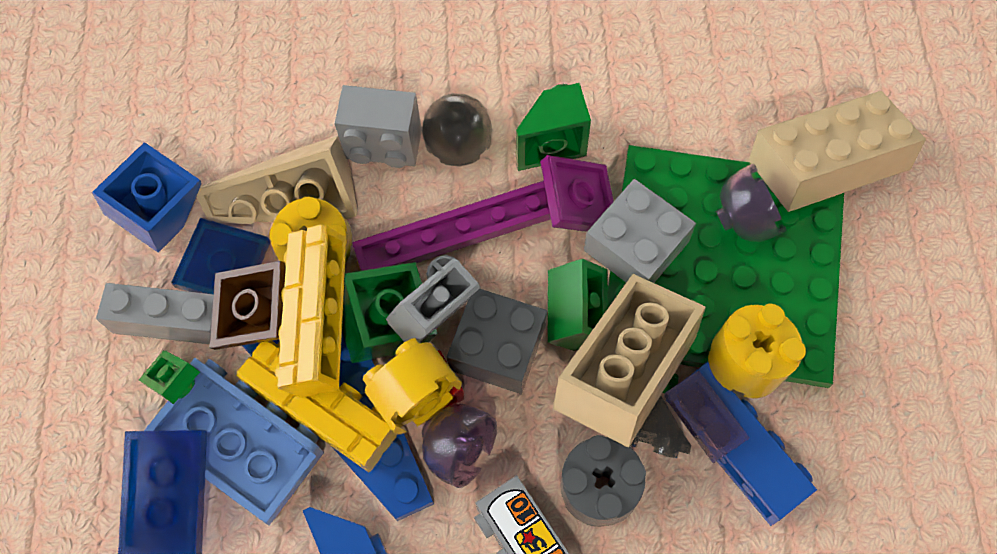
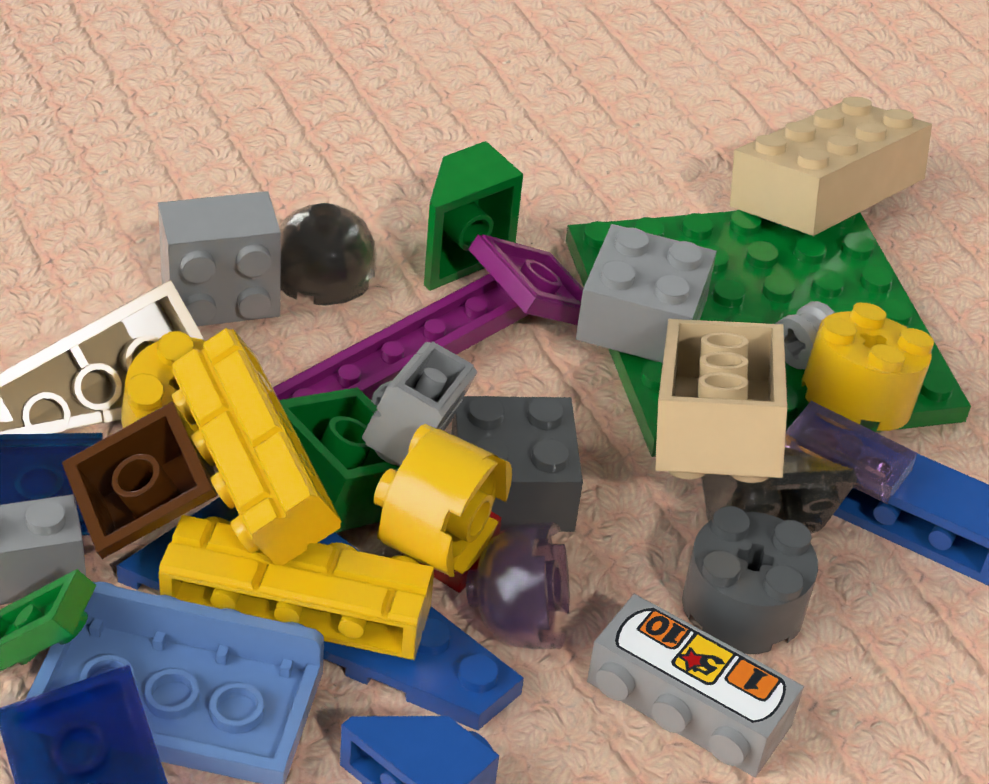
camera: 30 degrees left, 25 degrees down
(575, 302) = (608, 395): green brick -> none
(731, 299) = (801, 332): none -> light grey wheel
(749, 207) = (771, 229): clear purple cylinder -> none

